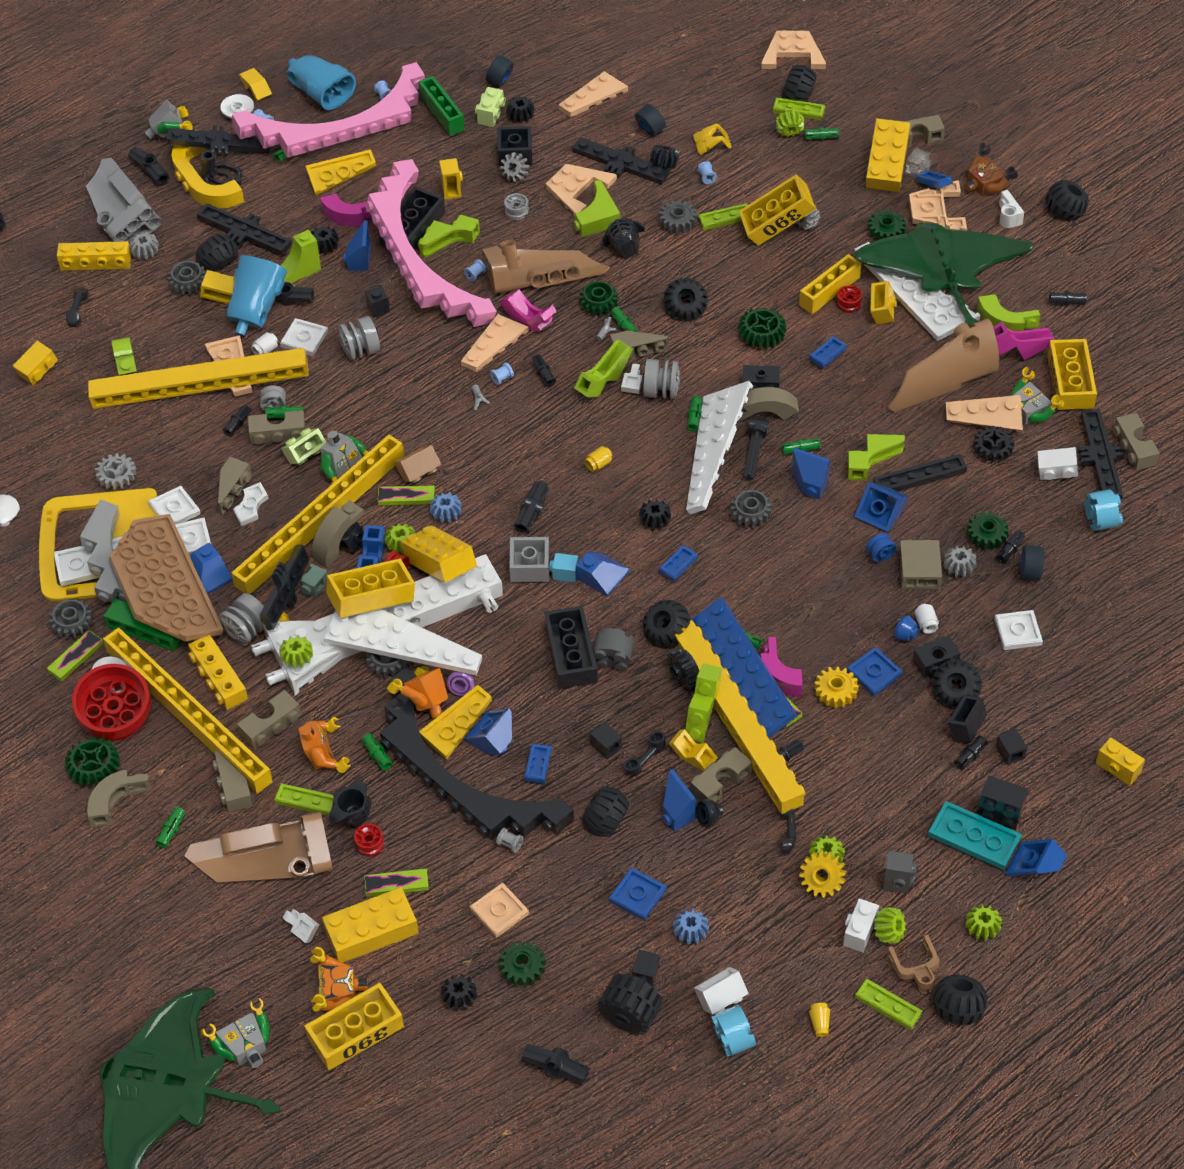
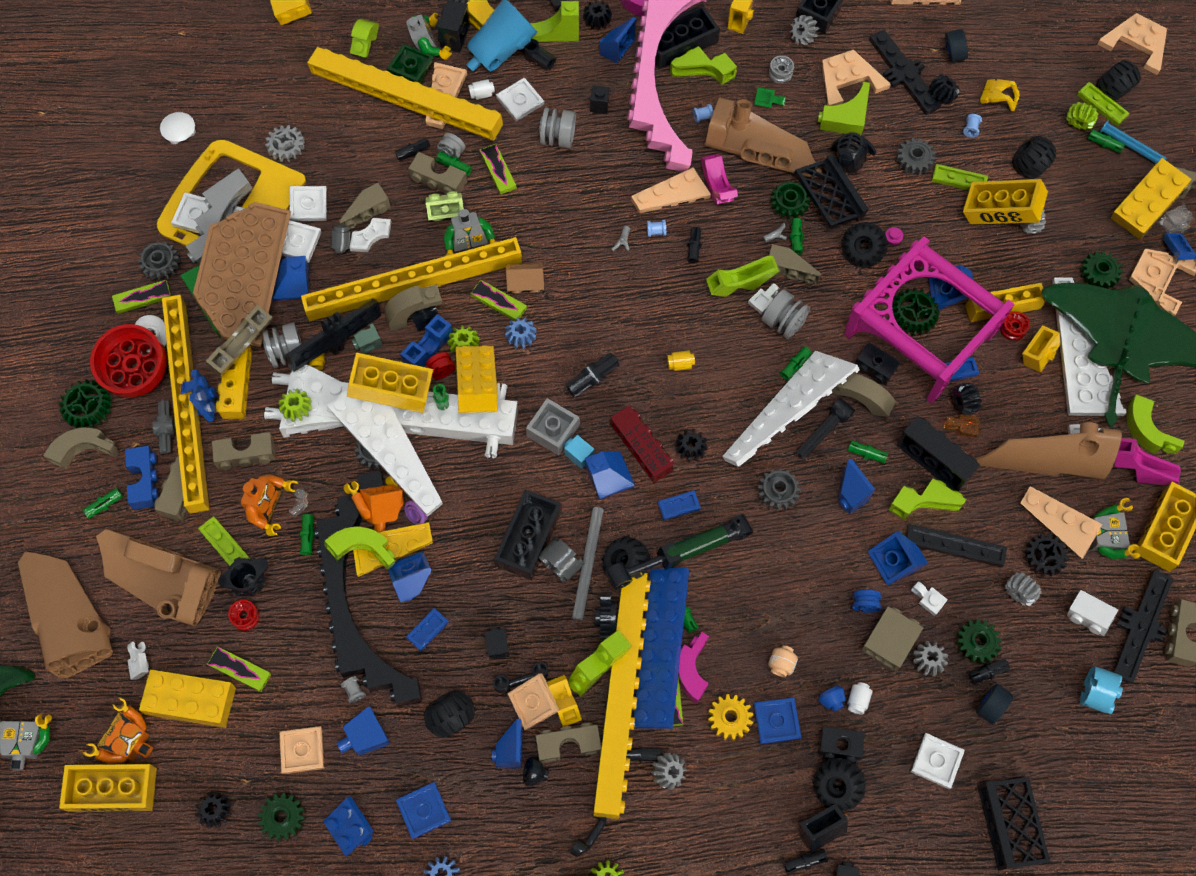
camera: 30 degrees right, 15 degrees up
(180, 327) = (423, 37): none -> torso
(180, 740) = (164, 427): none -> dark grey axle
(181, 777) = (144, 492): none -> blue arch
(185, 352) = (410, 64): none -> dark green slope
(193, 683) = (203, 395): none -> blue piece
(202, 306) = (453, 25): none -> black brick
(205, 925) = (62, 616): none -> medium nougat panel
(206, 628) = (240, 340): none -> dark tan arch
(228, 516) = (340, 238): none -> dark grey brick
(326, 398) = (498, 169): none -> tile
(351, 731) = (301, 502): none -> clear arm
(422, 576) = (440, 396): none -> green pin
(433, 721) = (360, 538): none -> lime arch
(520, 232) = (766, 97): none -> green plate
(545, 865) = (363, 734): none -> blue torso
(586, 935) = (349, 826): none -> blue piece
(613, 535) = (642, 444): none -> dark red brick
(632, 267) = (842, 187): none -> black fence
(638, 650) = (588, 559): none -> light grey axle
(668, 756) = (533, 701): none -> light nougat tile
(703, 592) = (673, 553): none -> black piece
(705, 281) = (894, 235): none -> dark pink plate
(735, 343) = (868, 319): none -> dark pink arch
(773, 170) = (1034, 157): none -> black wheel
(777, 293) = (945, 293): none -> blue slope
(817, 748) = (666, 763): none -> light grey gear
(843, 125) = (1132, 143): none -> dark azure axle
(847, 625) = (783, 661): none -> light nougat head
(851, 366) = (966, 398): none -> black gear
(857, 415) = (937, 454): none -> black brick
(864, 386) = (966, 425): none -> clear orange plate
(929, 522) = (931, 599): none -> white plate
(994, 474) = (1023, 589): none -> light grey gear
(1098, 646) = (998, 831): none -> black fence

